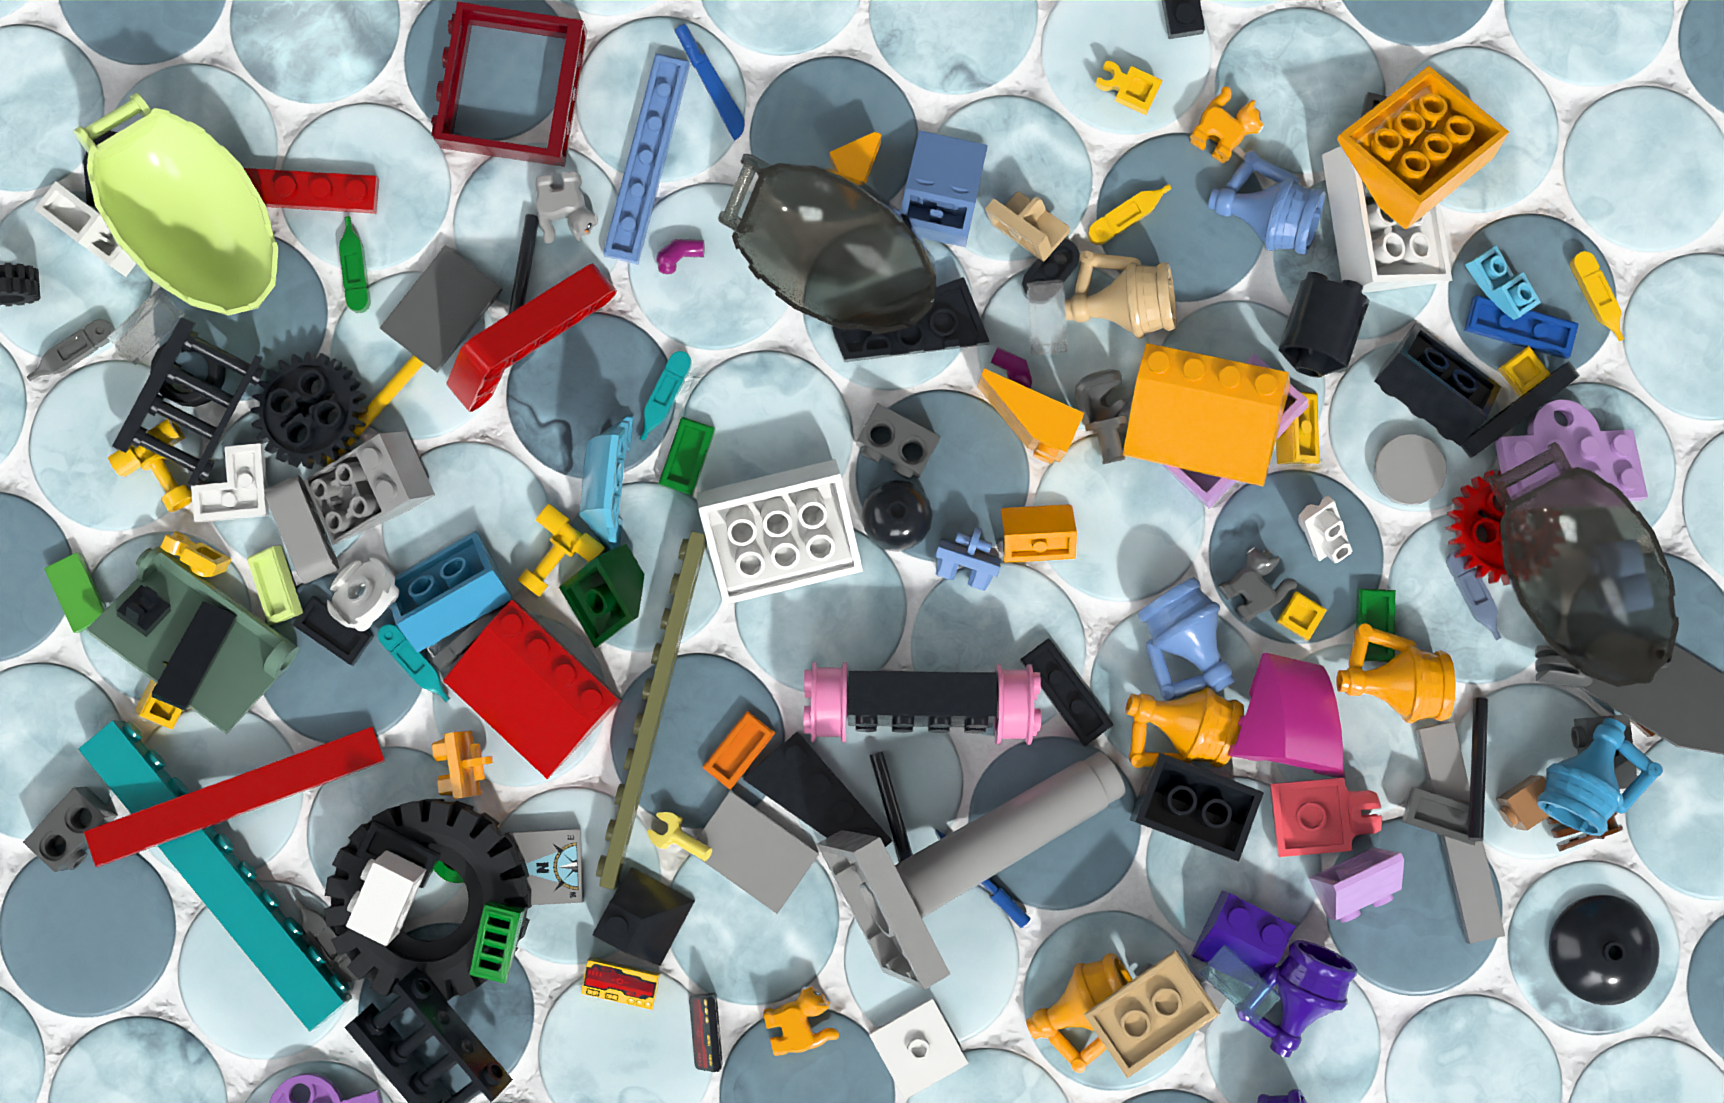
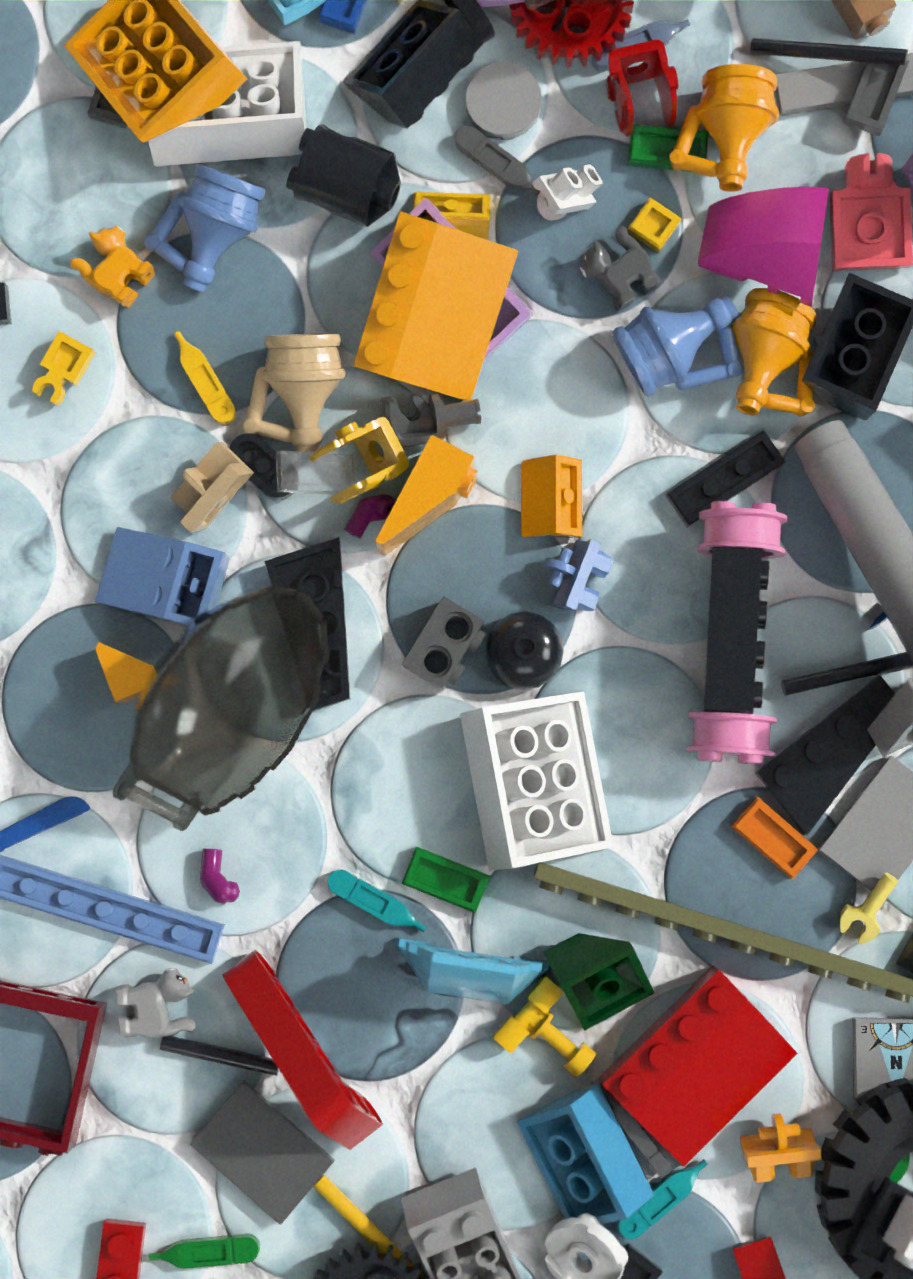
camera: 80 degrees left, 0 degrees up
(1056, 378) = (381, 468): none -> yellow piece
(1354, 462) = (493, 158): none -> dark grey piece
(1453, 603) = (653, 65): none -> red piece

